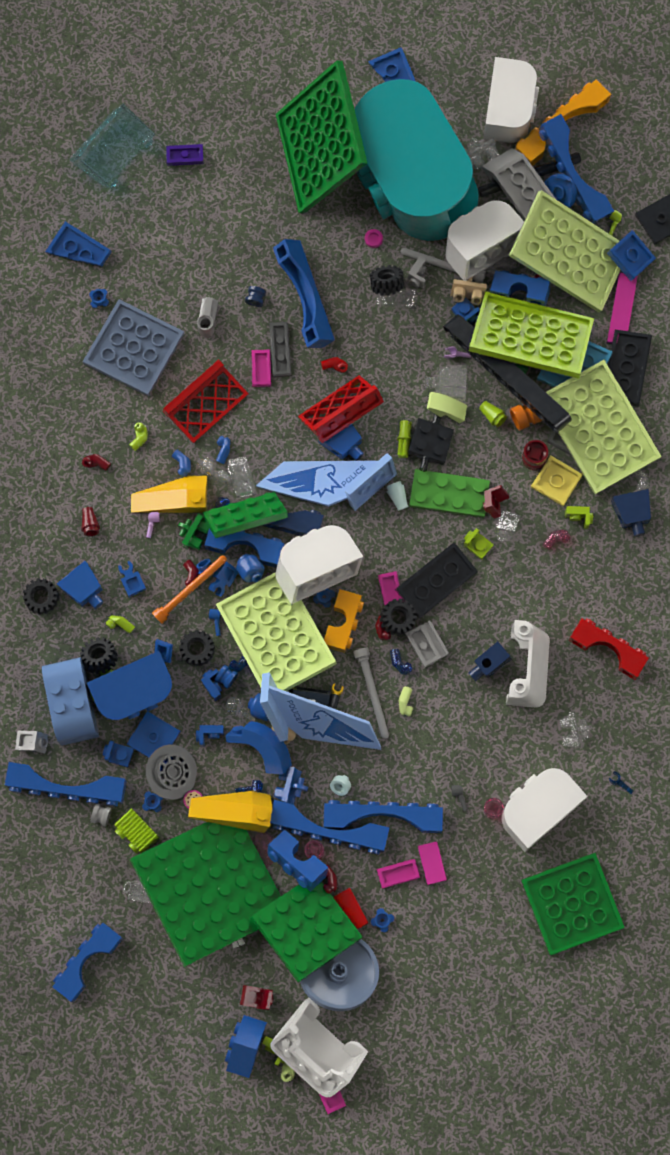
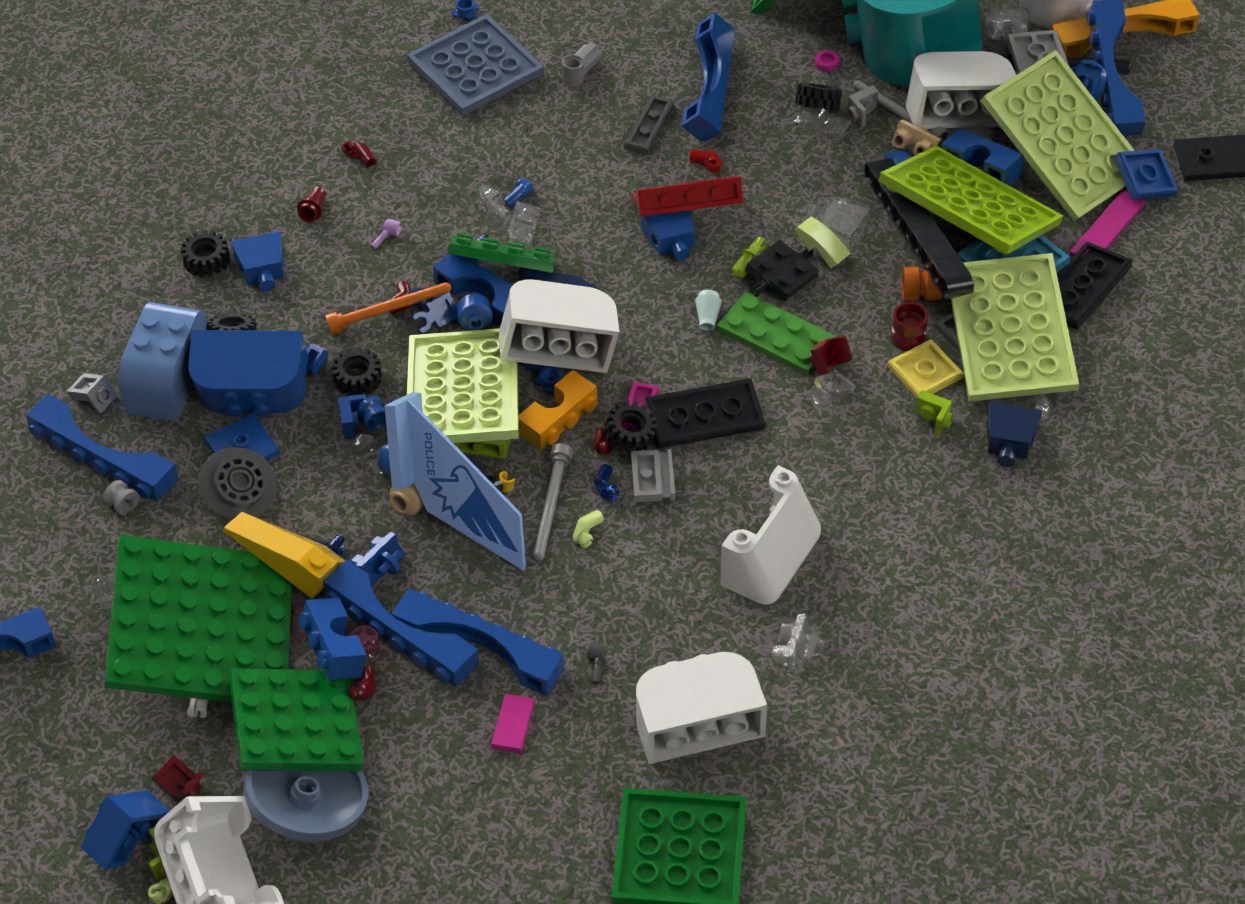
camera: 25 degrees right, 25 degrees down
(118, 754) = (185, 443): blue bracket -> none
(120, 621) = (282, 312): lime arm -> none
(132, 581) = (323, 278): blue plate -> none
(136, 831) = (149, 521): lime brick -> none
(141, 436) = (428, 149): lime arm -> none
(147, 802) = (194, 504): blue plate -> none
(177, 496) = (428, 219): yellow wedge -> none
(184, 463) = (462, 190): blue arm -> none
(190, 540) = (426, 255): green hips -> none
(191, 393) = (521, 124): red fence -> none
(212, 731) = (315, 461): blue bracket -> none
(215, 615) = (401, 348): blue hand -> none
(255, 296) = (649, 64): dark blue wheel -> none
(261, 368) = (614, 134): dark pink tile -> none
(265, 740) = (378, 500): blue arch -> none
(330, 480) = (662, 275): light blue piece -> none
(340, 785) = (444, 583): light aqua tile -> none
(351, 908) = (372, 730): red slope -> none
(388, 918) = (404, 754): blue plate -> none
(398, 873) = (460, 717): dark pink tile -> none
(454, 353) = (861, 194): lavender hand -> none
(477, 544) = (781, 394): lime bracket -> none
(492, 811) = (626, 683): clear pink wheel -> none
(493, 414) = (879, 272): lime cone -> none
(498, 658) = (723, 516): dark blue torso -> none
(556, 536) = (889, 425): clear pink arm -> none
(616, 217) = (1146, 138): lime hand -> none
(620, 783) = (827, 730): hand -> none
(630, 660) = (875, 544): red arch -> none

